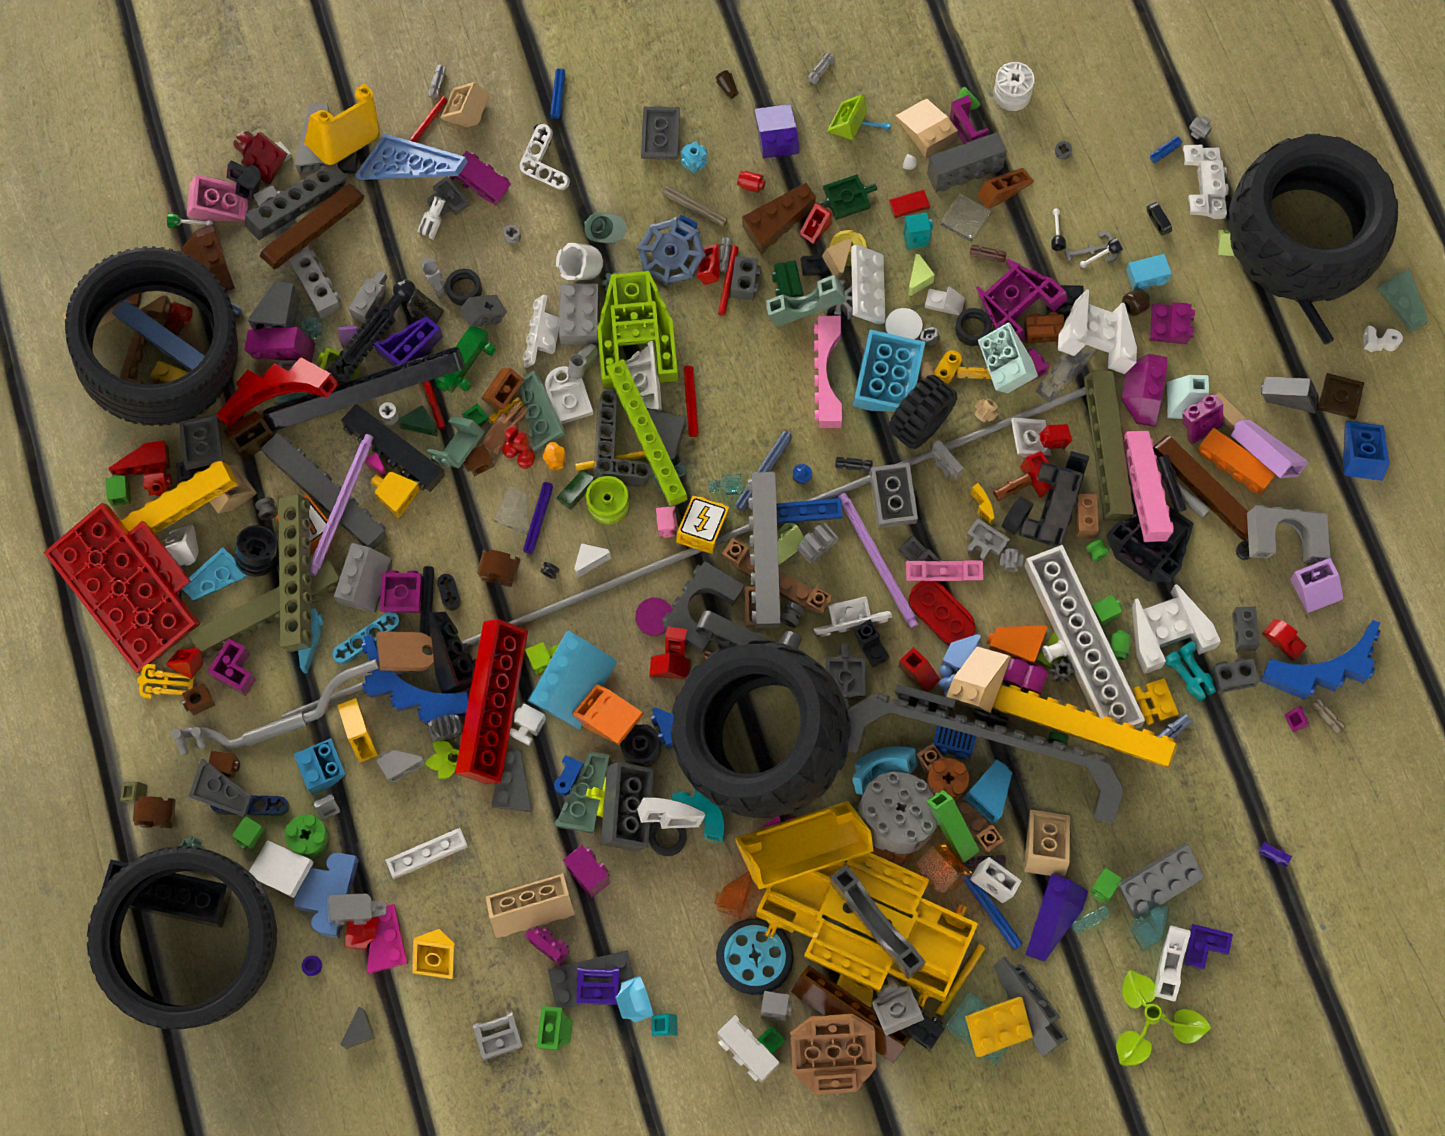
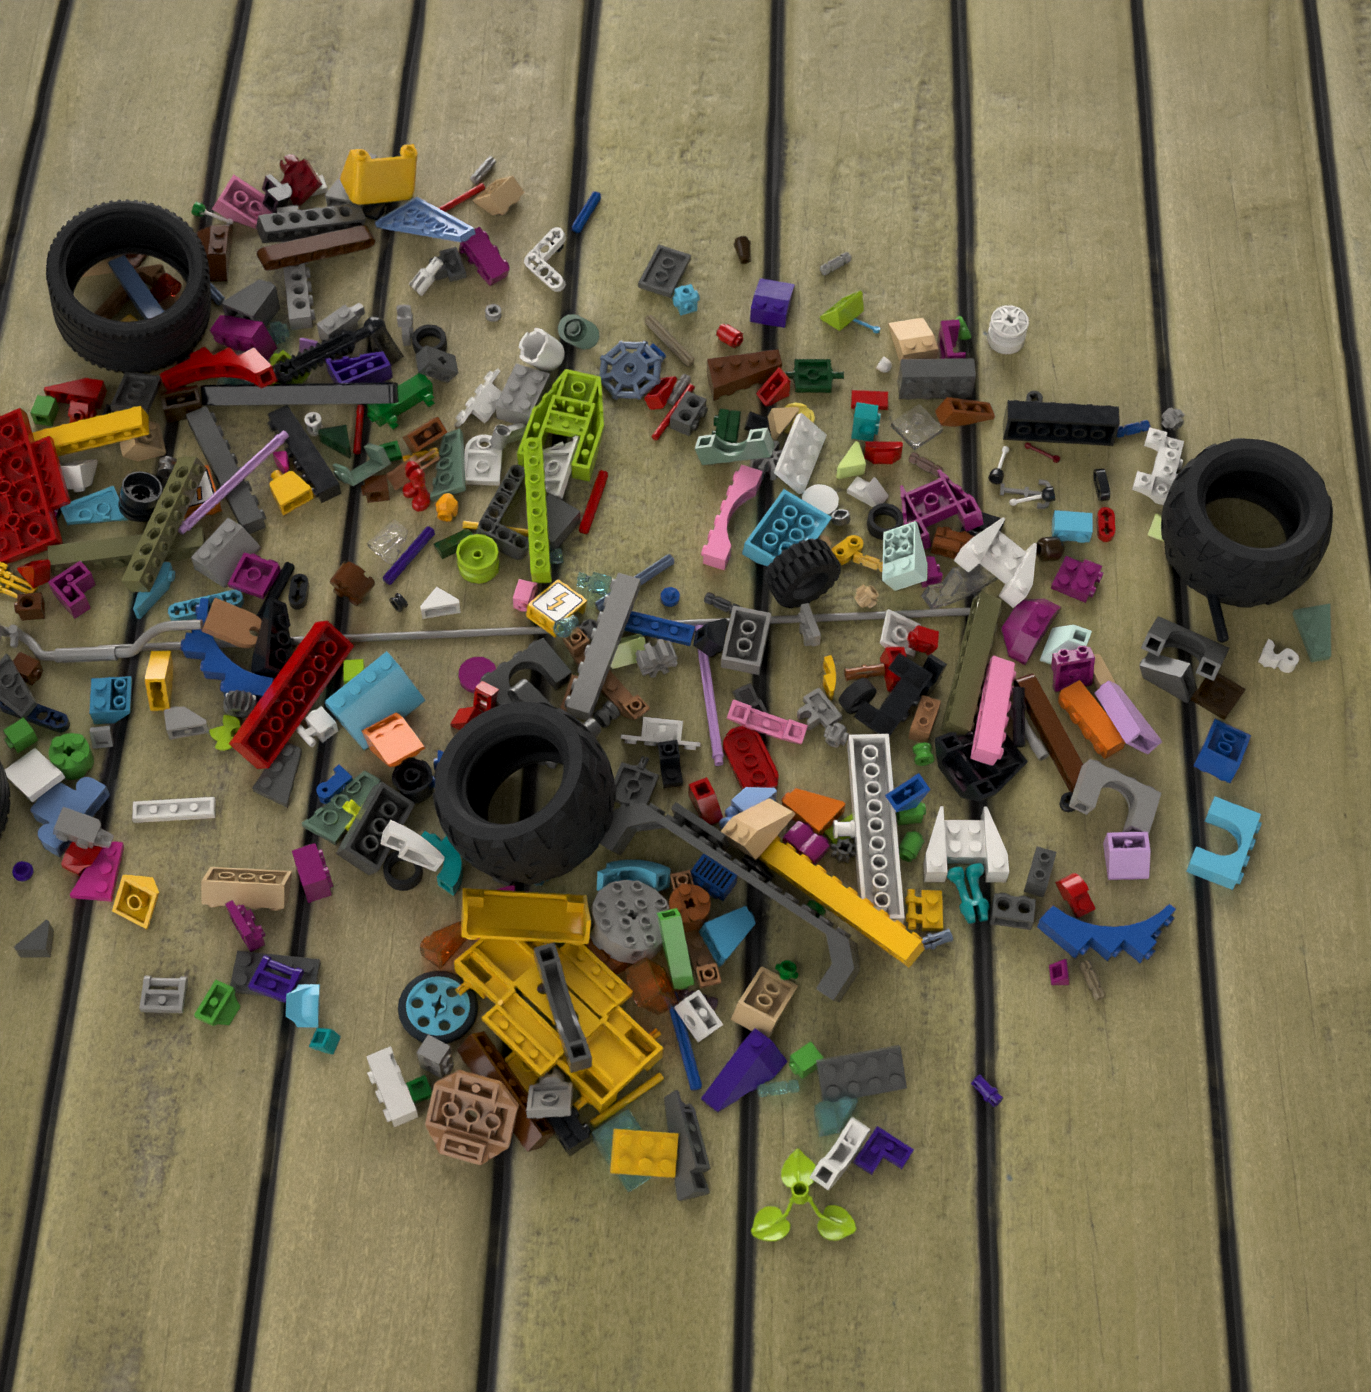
camera: 15 degrees right, 10 degrees down
(722, 544) = (564, 626): none -> clear light blue cone
(744, 536) = (588, 625): none -> flat silver wheel
(860, 504) = (711, 637): none -> black slope
(943, 255) = (883, 452): none -> red slope
(1055, 805) = (787, 970): none -> green plate
(1100, 168) = (1061, 423): none -> black brick
(1104, 599) = (908, 794): none -> blue slope
(1106, 205) = (1055, 459): none -> dark red hinge
(1173, 259) = (1109, 524): none -> red beam
(1320, 358) = (1168, 634): none -> dark grey arch
(1409, 518) = (1226, 869): none -> medium azure arch

